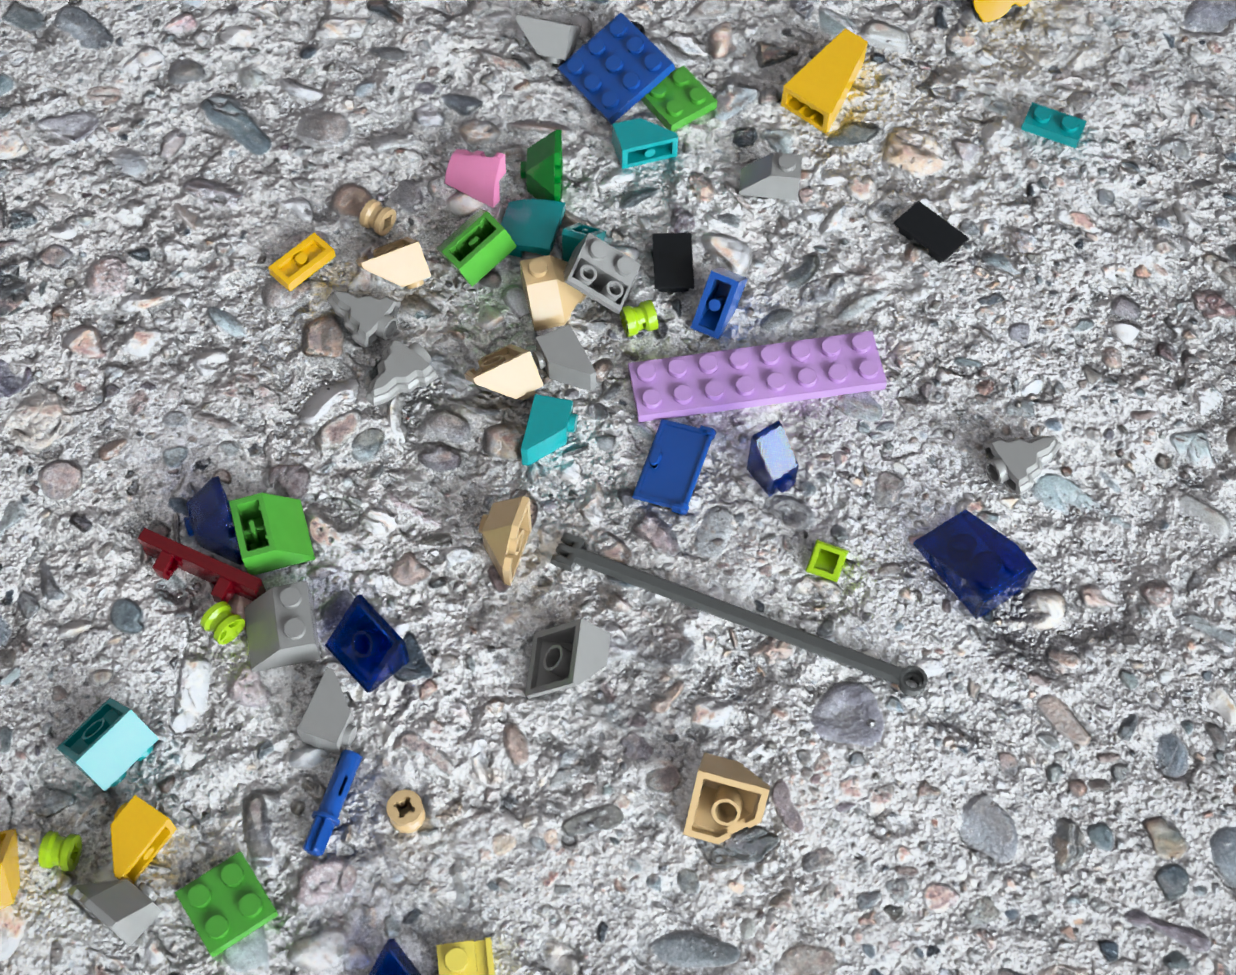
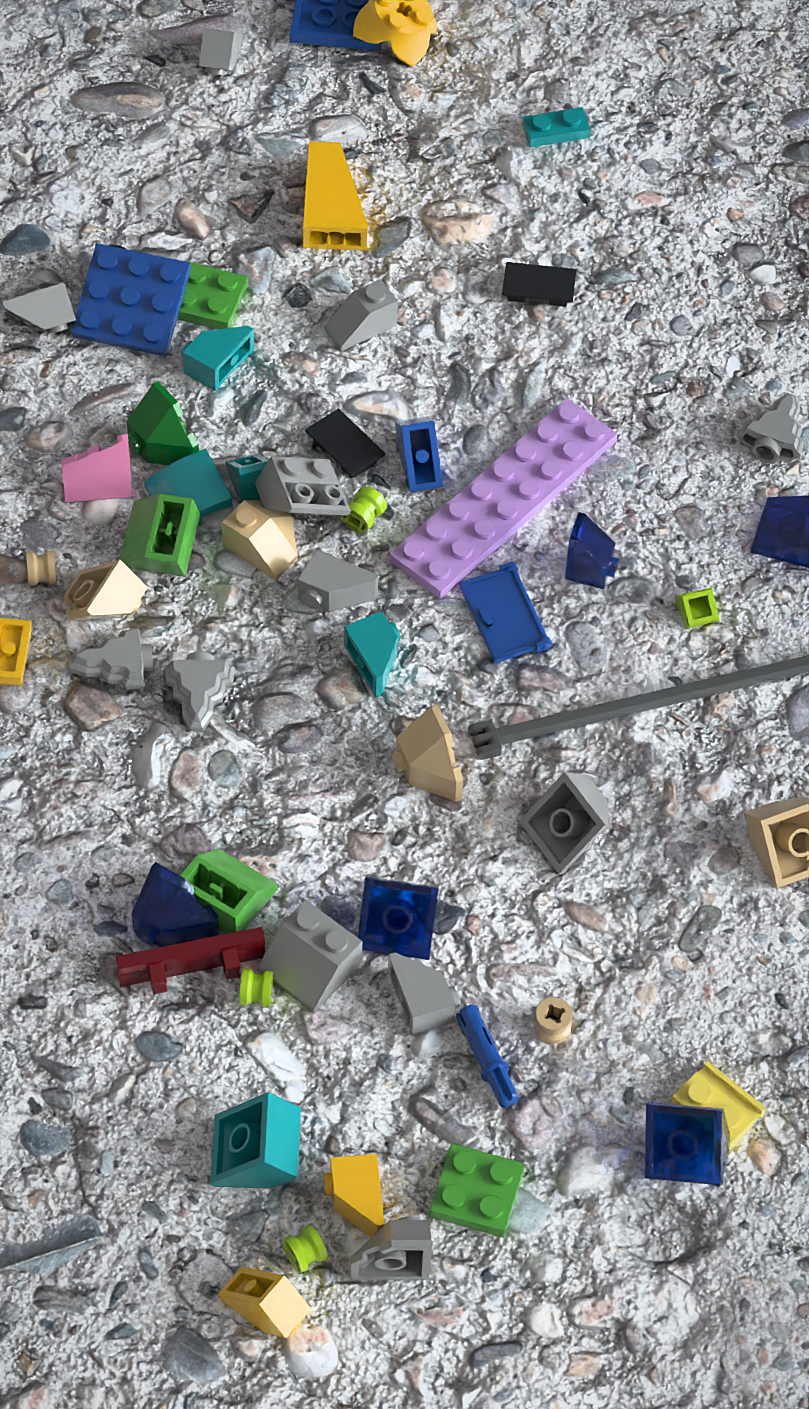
camera: 40 degrees left, 5 degrees down
(507, 372) = (296, 623): slope -> none

